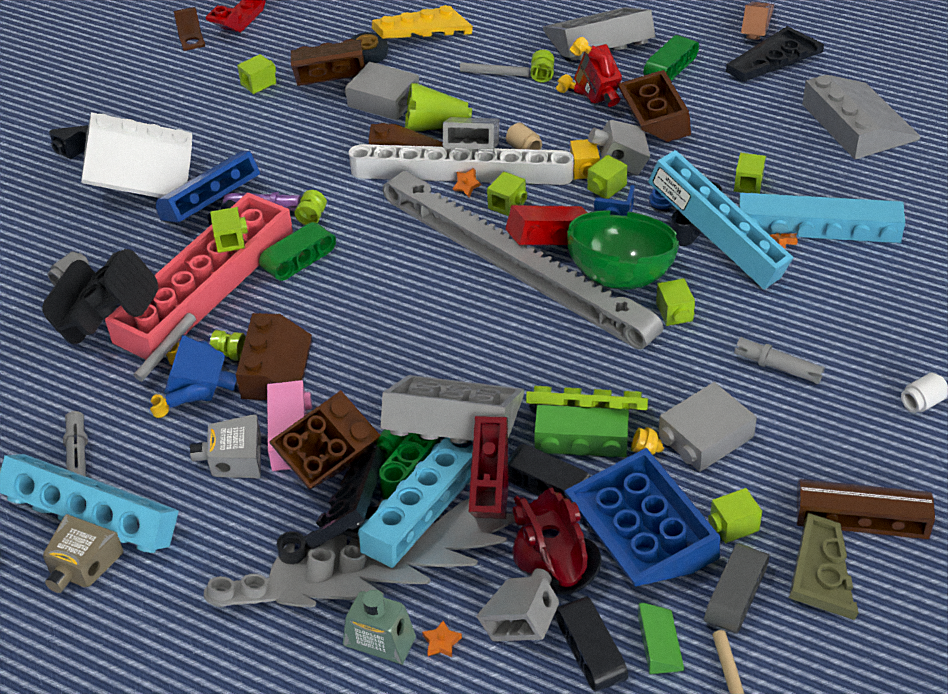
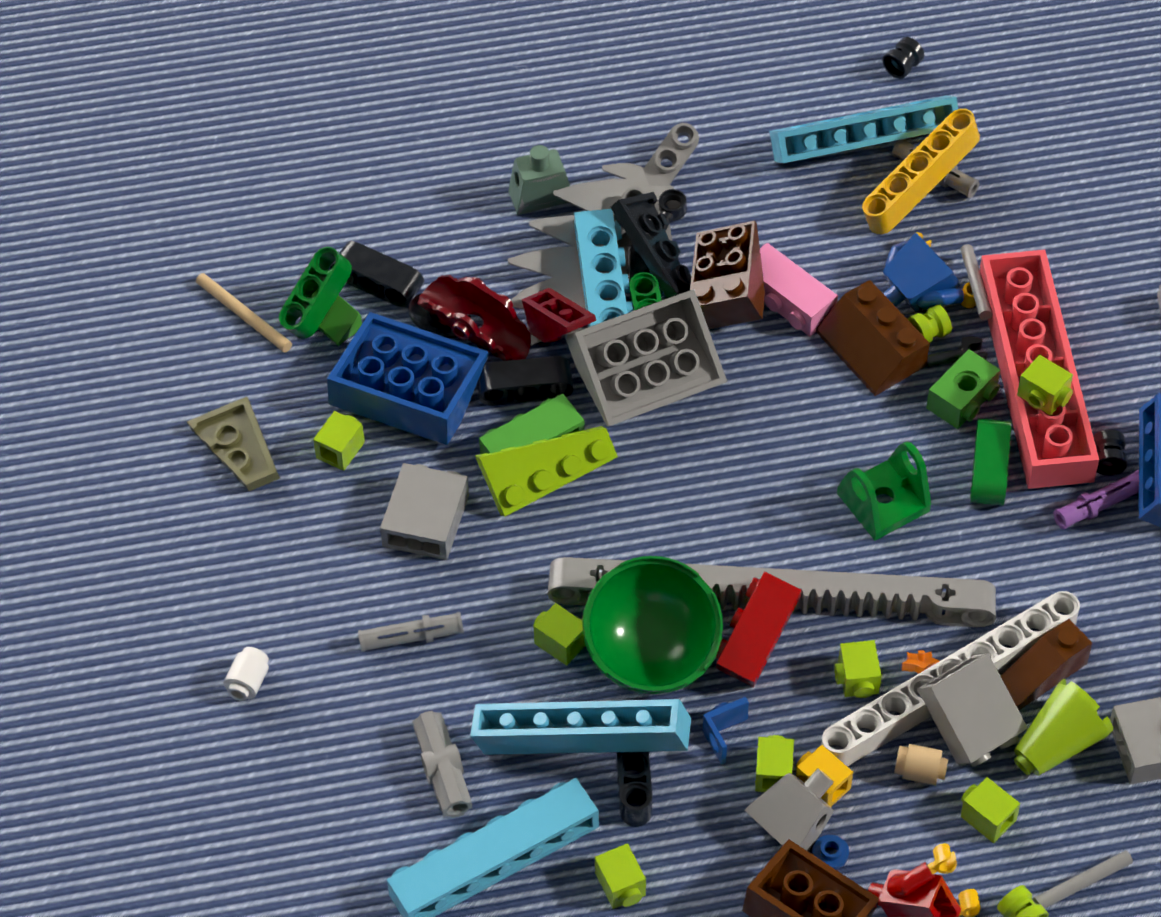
camera: 140 degrees right, 10 degrees up
(79, 553) = (825, 96): dark tan torso -> none
(84, 424) = (921, 171): none -> yellow beam
(86, 297) = (1087, 263): black piece -> none
(226, 323) = (952, 356): none -> black bar
(231, 448) = (810, 241): light grey torso -> none
(259, 295) = (963, 389): none -> bright green brick
(310, 207) = (1041, 520): lime wheel -> none
(369, 264) = (894, 478): none -> green hose
(441, 640) = (494, 220): orange piece -> none
(510, 106) = (989, 809): none -> lime brick
(520, 608) = (442, 249): light grey torso -> none
(647, 439) = (466, 464): yellow plate -> none
(659, 201) = (691, 772): blue plate -> none
(667, 634) = (315, 277): none -> green beam
(736, 588) = (295, 382): dark grey beam -> none
(787, 238) = (513, 798): orange piece -> none
(817, 276) = (442, 764): none -> light grey piece
(868, 508) = (236, 519): reddish brown brick -> none

